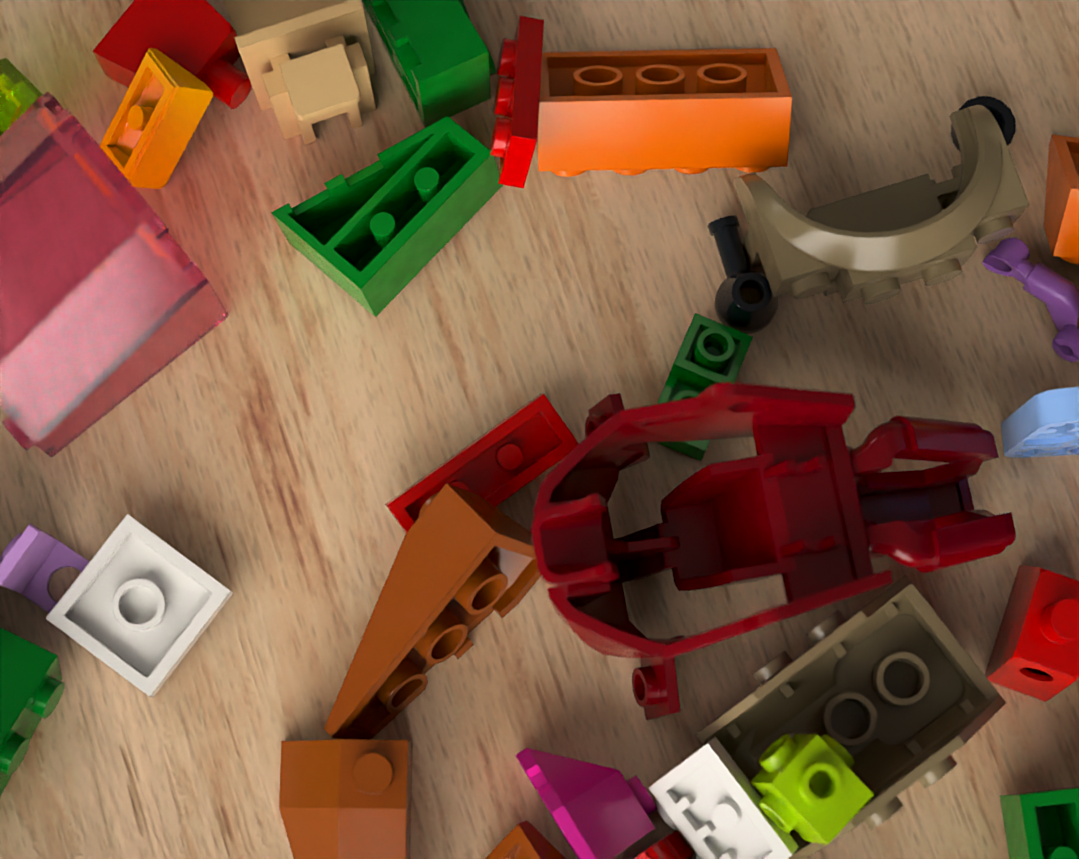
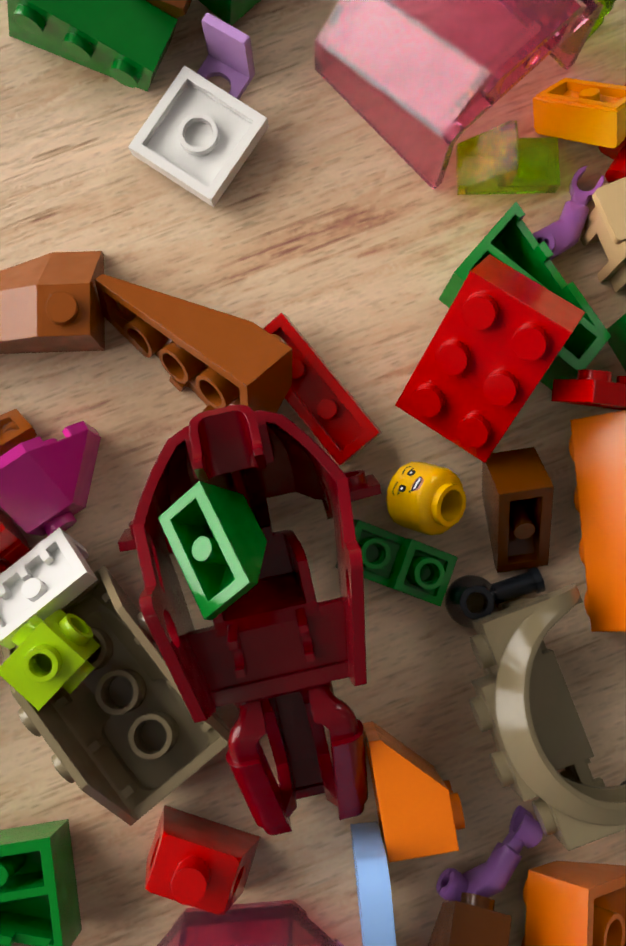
camera: 90 degrees right, 5 degrees up
(209, 217) = (507, 164): none -> clear neon green slope
(298, 159) = (567, 230): none -> medium lavender arm
(469, 255) = (488, 356): none -> red brick
(625, 344) = (425, 498): none -> yellow head
(639, 240) = (517, 508): none -> reddish brown slope
(695, 561) = (215, 545): none -> green slope
(979, 375) = (412, 801): none -> orange slope

